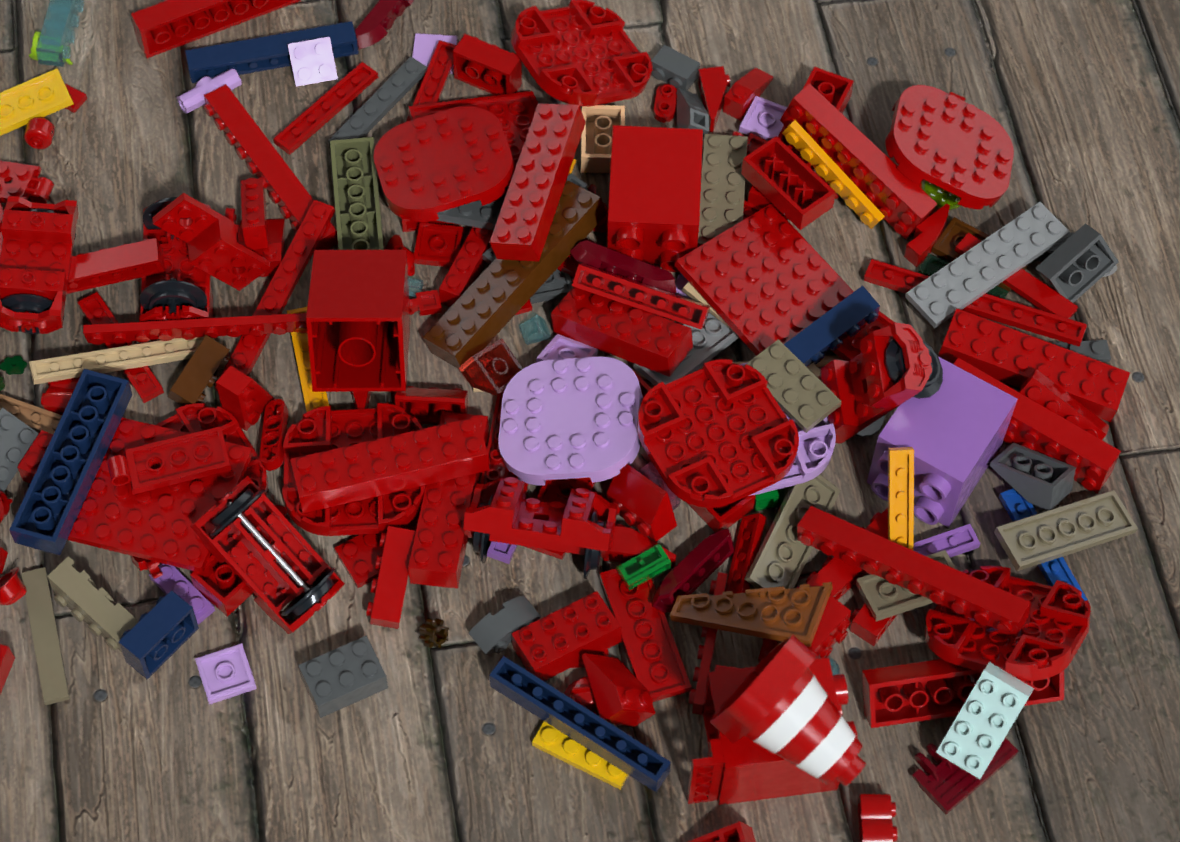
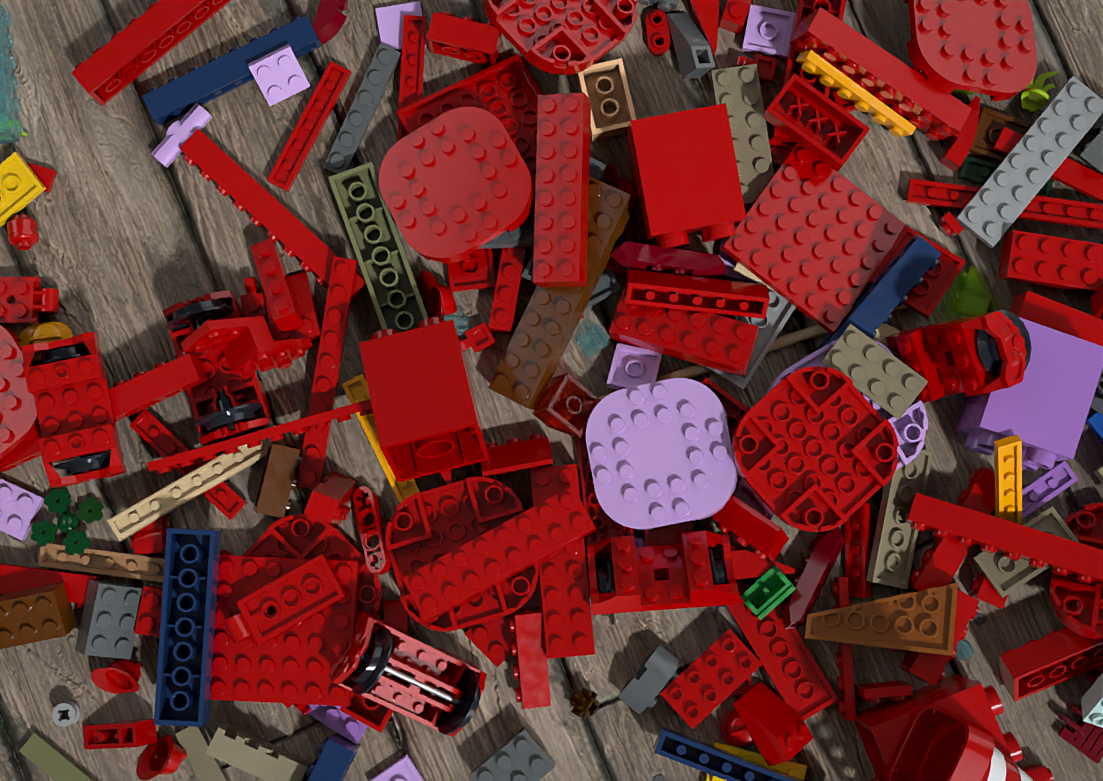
camera: 10 degrees left, 25 degrees up
(900, 304) = (949, 225): none -> red plate
(1005, 214) = (1036, 96): none -> lime piece

